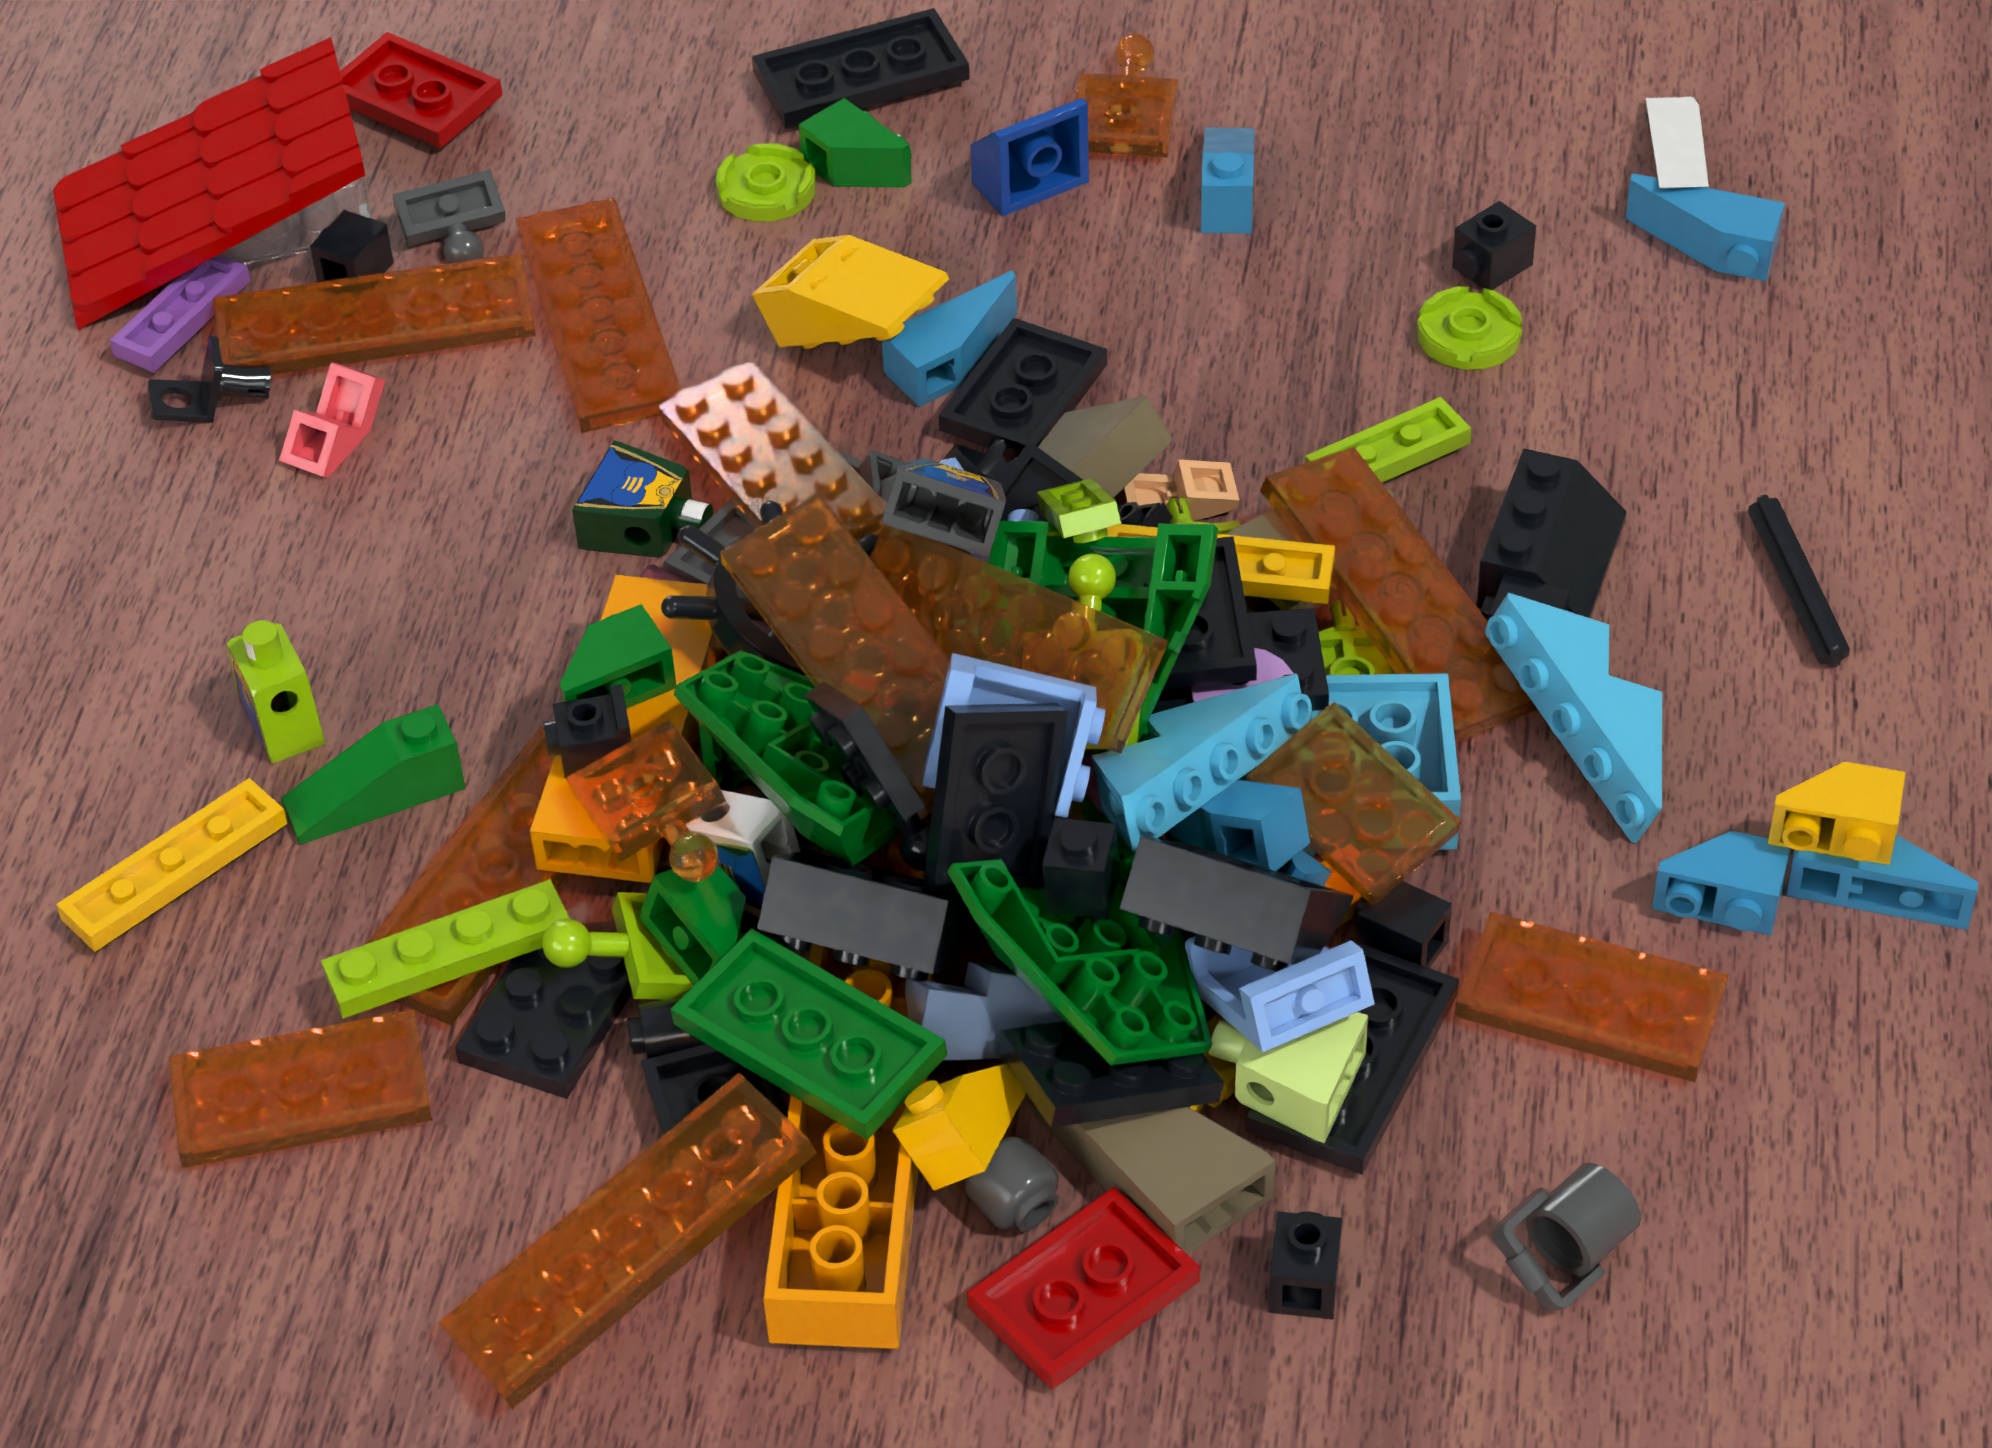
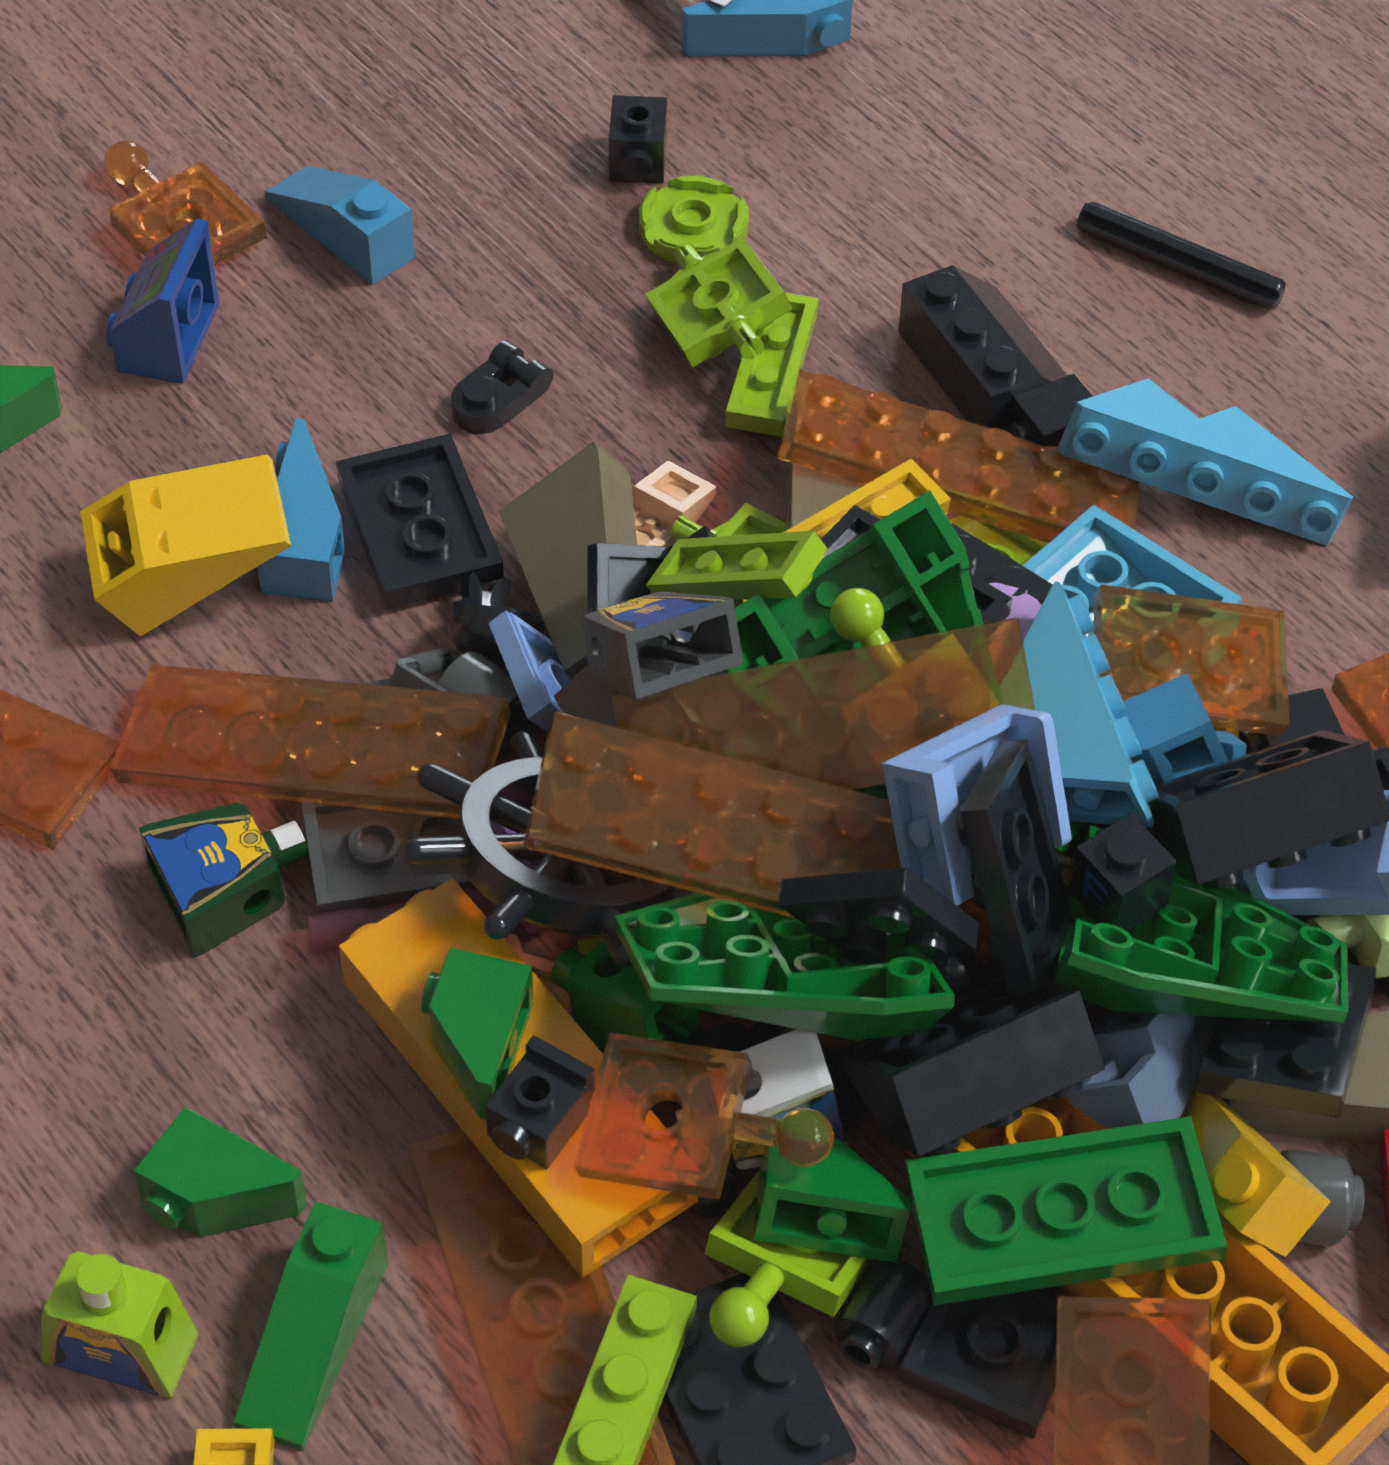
camera: 50 degrees left, 5 degrees up
(419, 661) = (215, 1180): none -> green slope
(1186, 347) = (485, 403): none -> black plate
(1392, 382) = (718, 301): none -> lime plate

